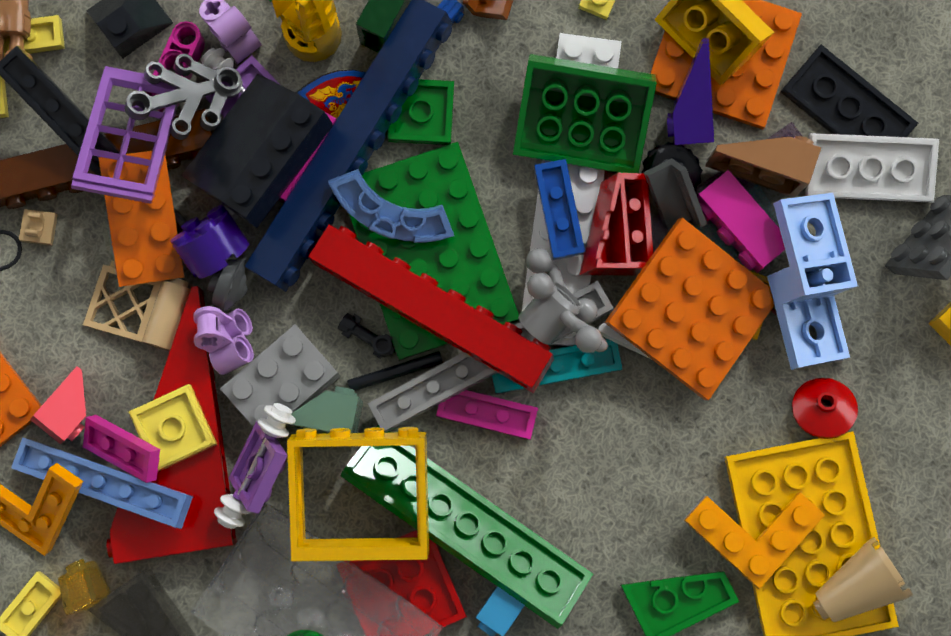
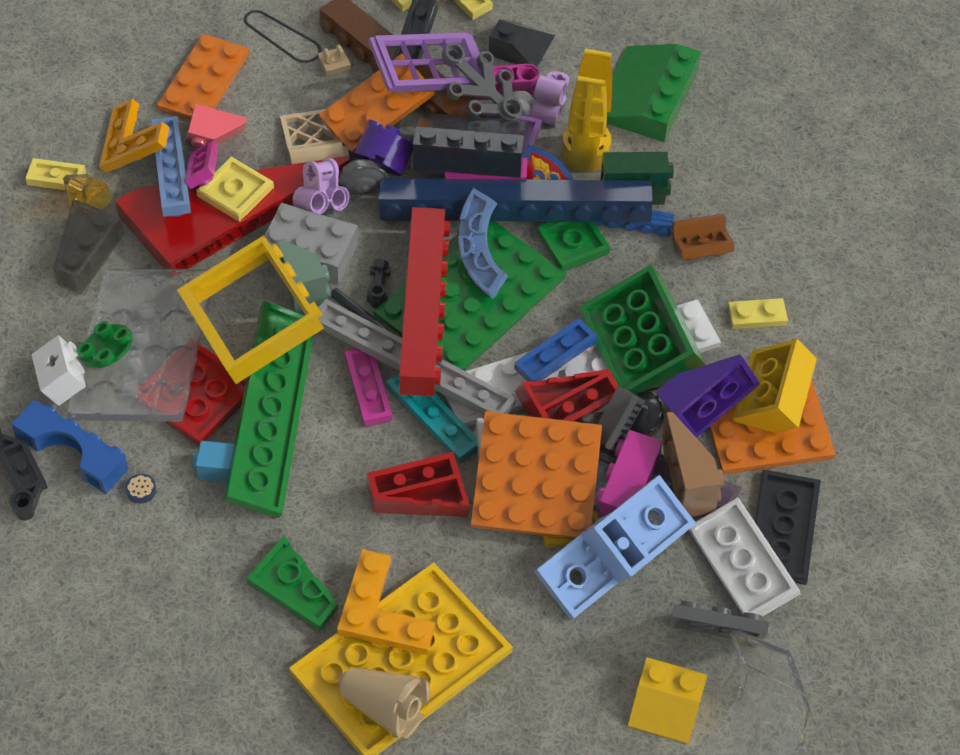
camera: 60 degrees right, 25 degrees down
(256, 467) = (232, 242): plate -> none
(557, 307) = (474, 365): light grey wheel -> none
(640, 427) = (419, 488): none -> red wedge
(822, 420) = (519, 620): red dish -> none

